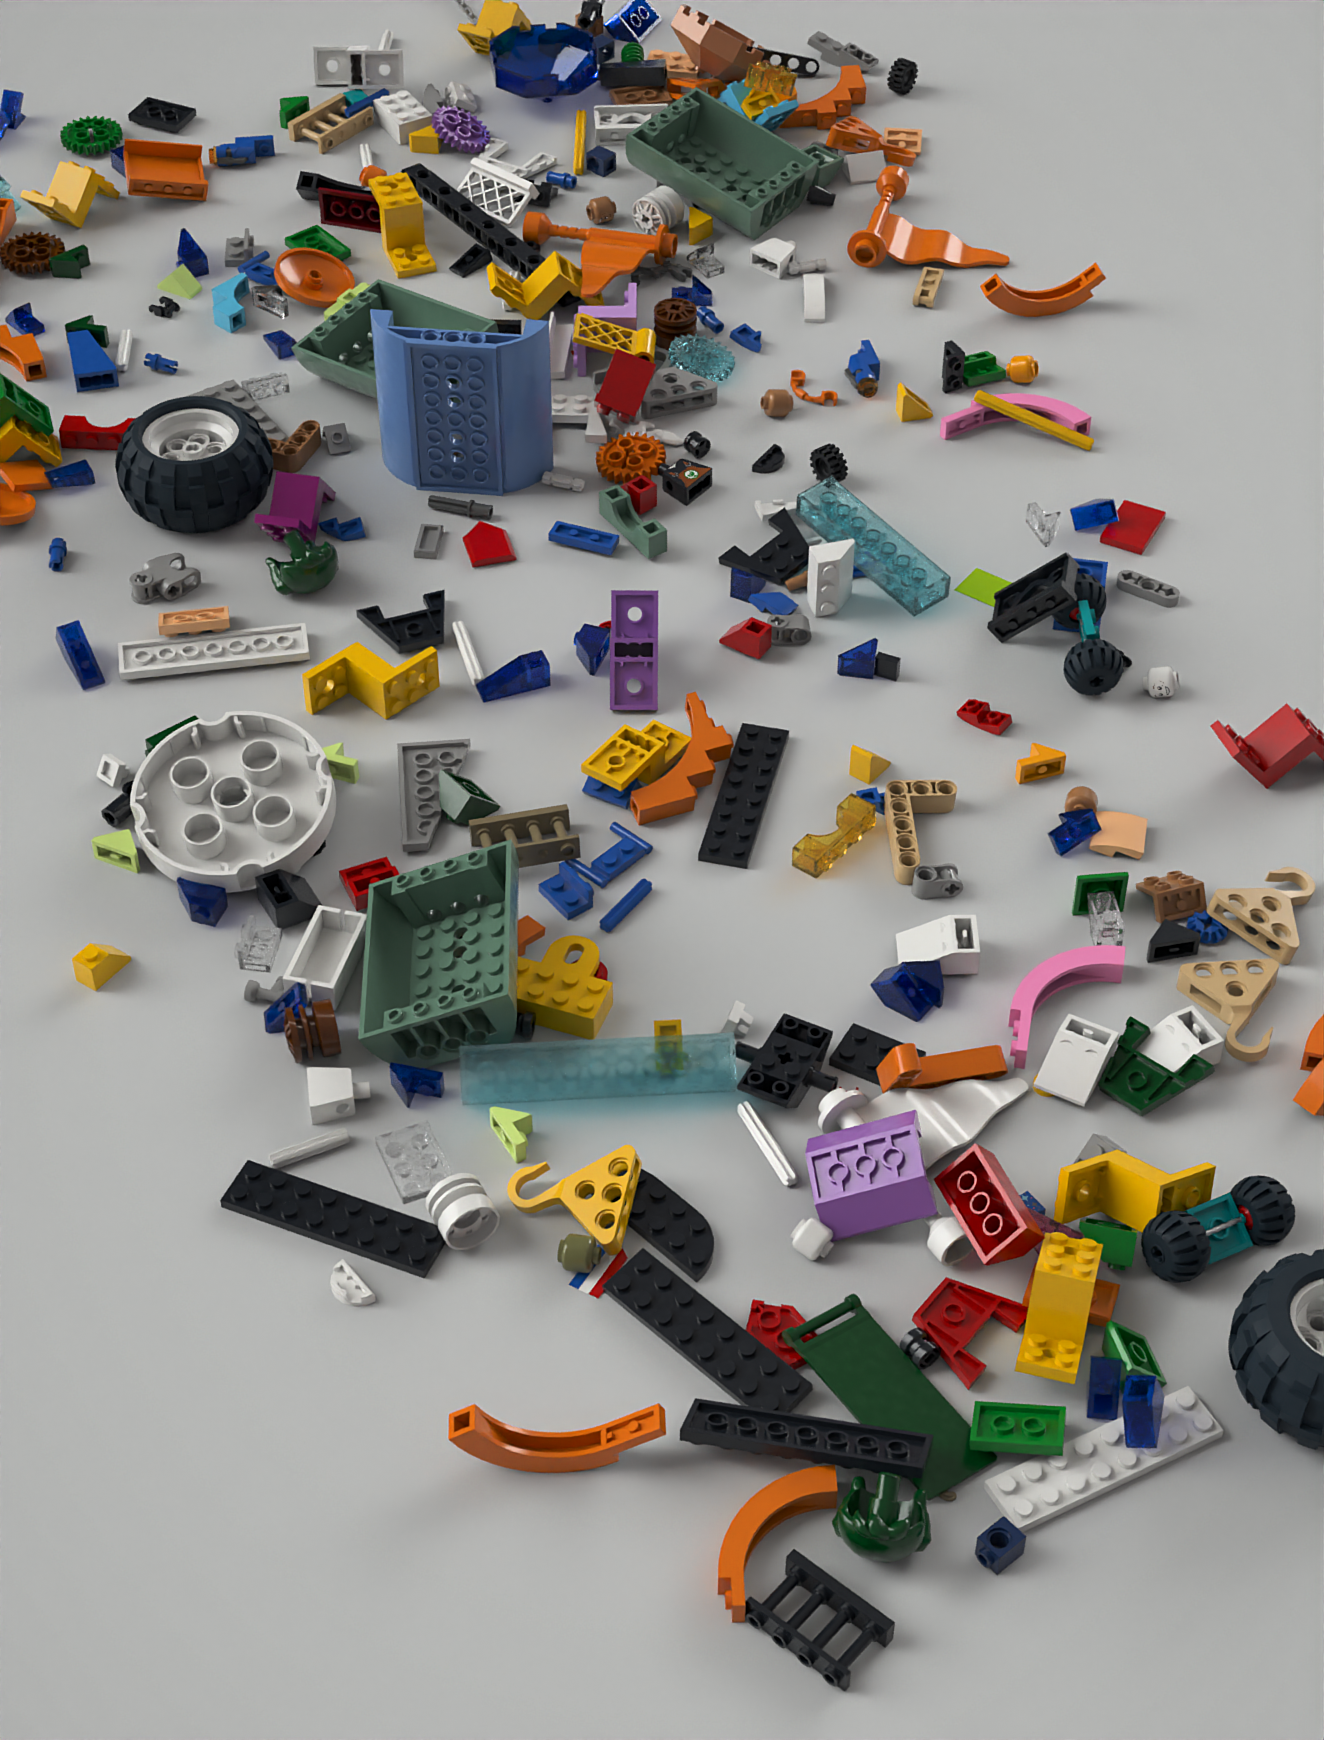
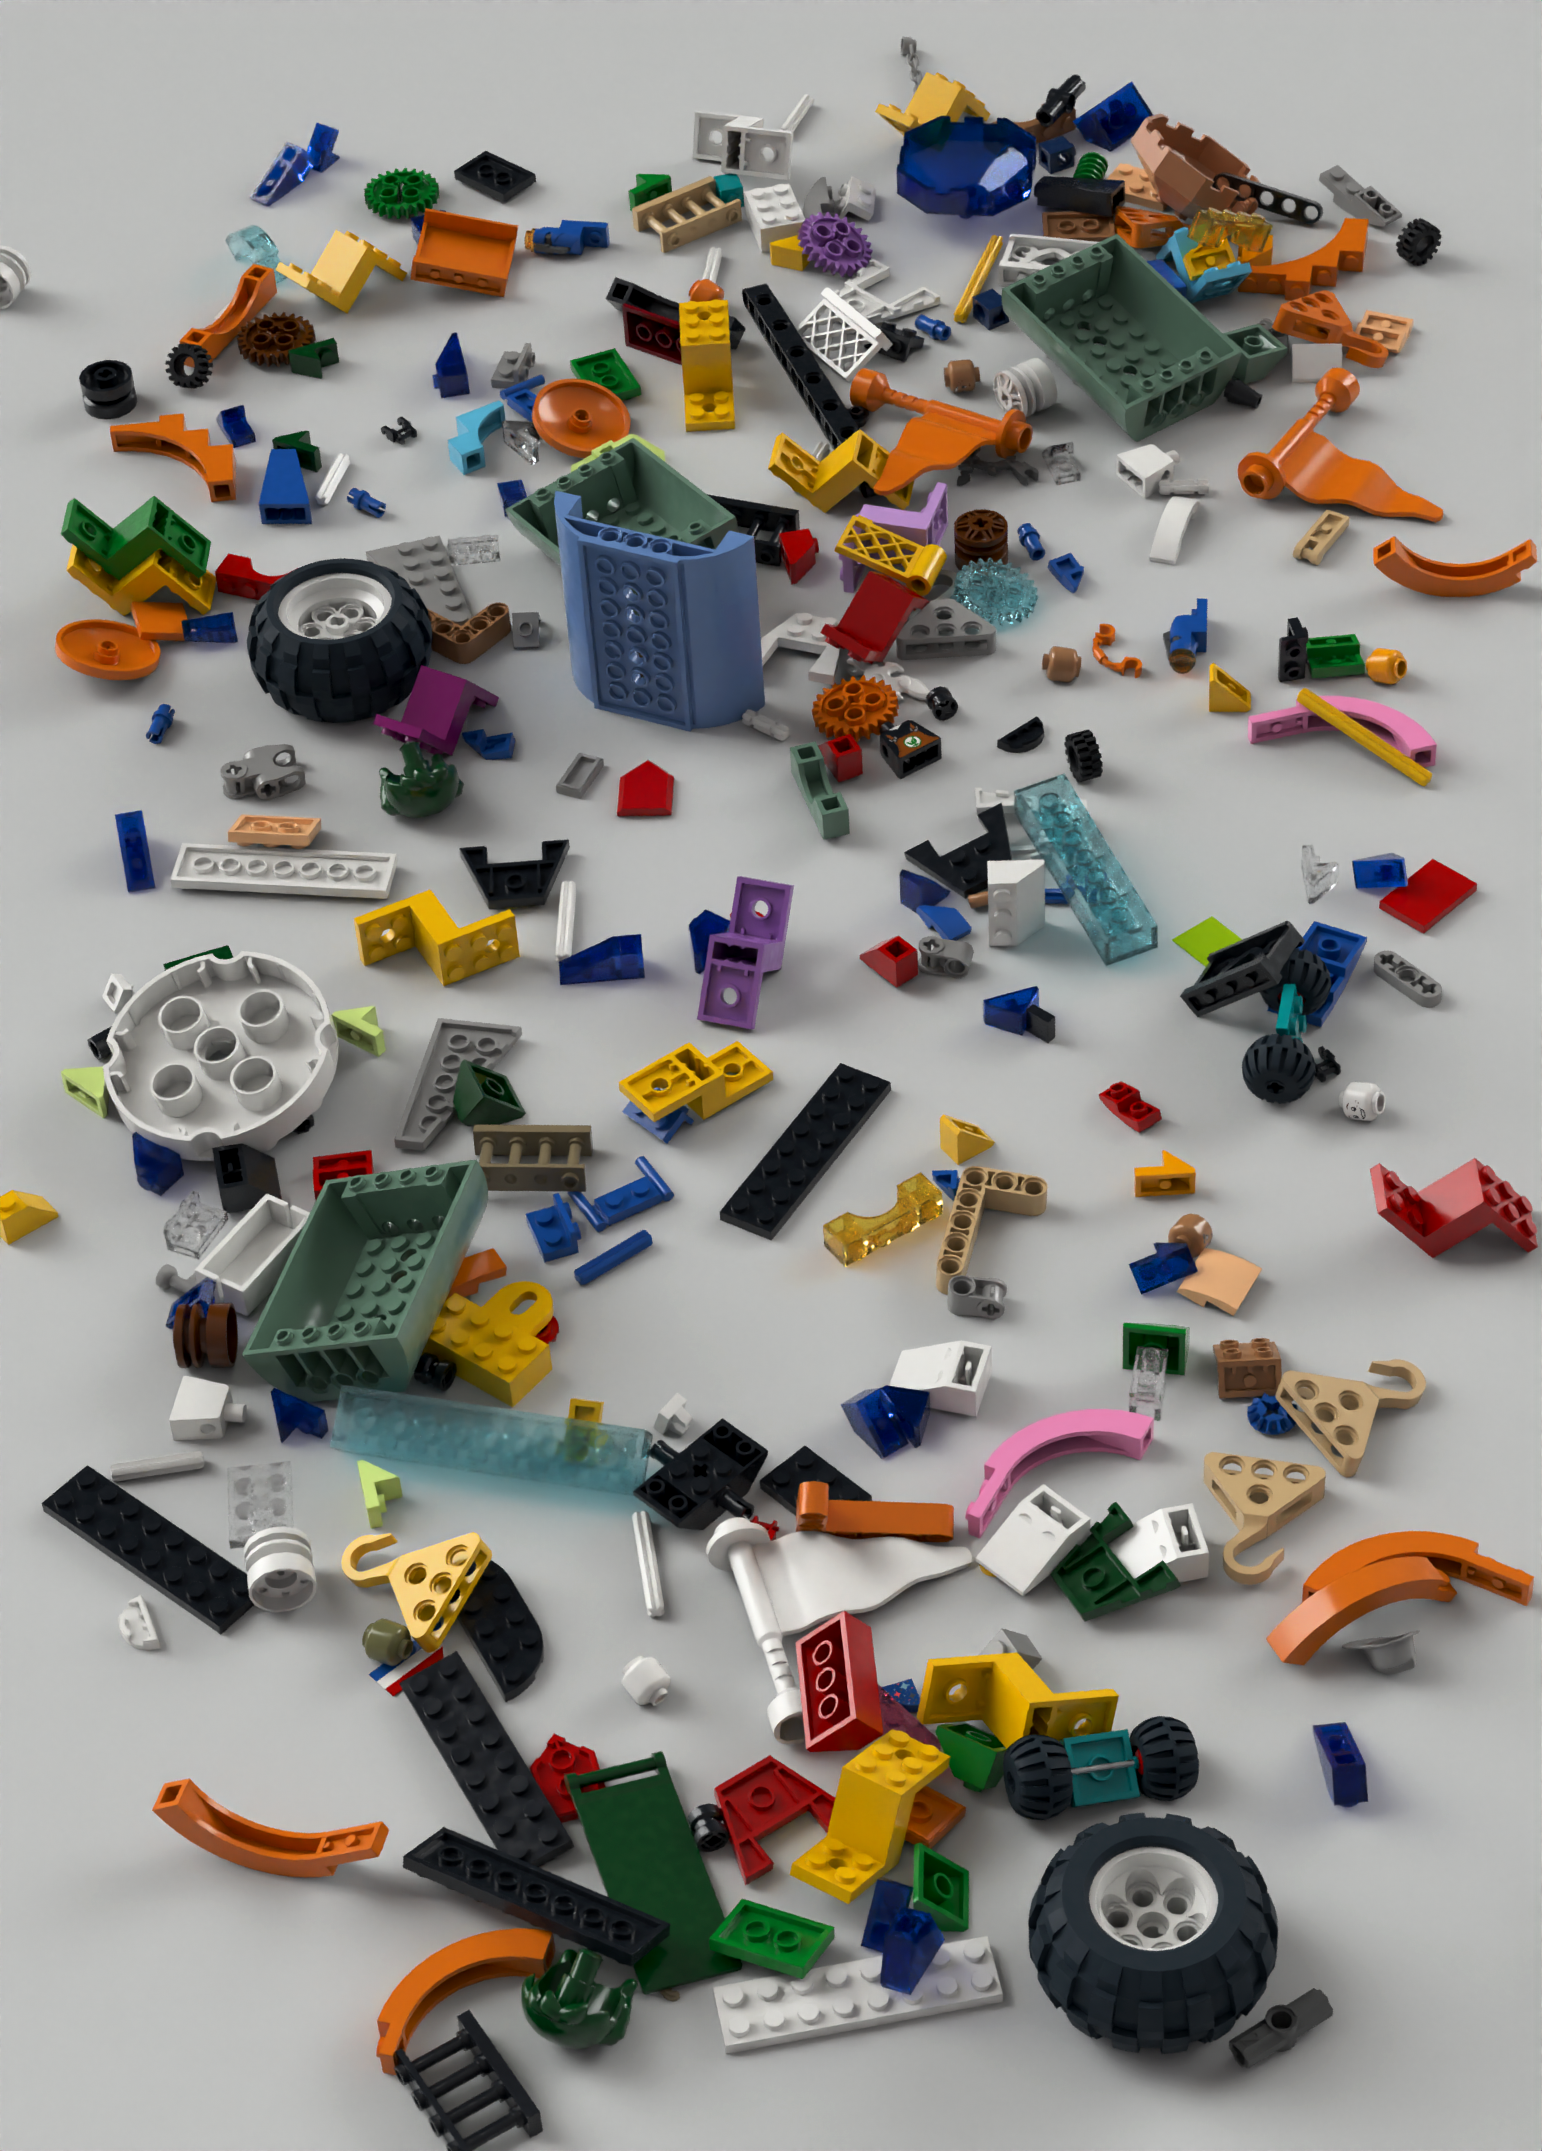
camera: 20 degrees right, 0 degrees up
(181, 283) = (429, 402): yellowish green slope -> none
(364, 103) = (734, 193): blue axle -> none
(469, 508) = (641, 741): dark grey axle -> none
(471, 261) = (783, 419): black slope -> none
(560, 347) = (821, 562): white panel -> none
(583, 538) = (757, 801): blue plate -> none
(677, 789) = (724, 1131): orange arch -> none
(698, 294) = (1029, 505): clear blue slope -> none
(699, 226) = (1071, 414): yellow slope -> none
(870, 1176) = (727, 1624): medium lavender slope -> none
(1000, 1534) = (698, 2047): dark blue brick -> none
(1172, 942) = (1216, 1423): black slope -> none

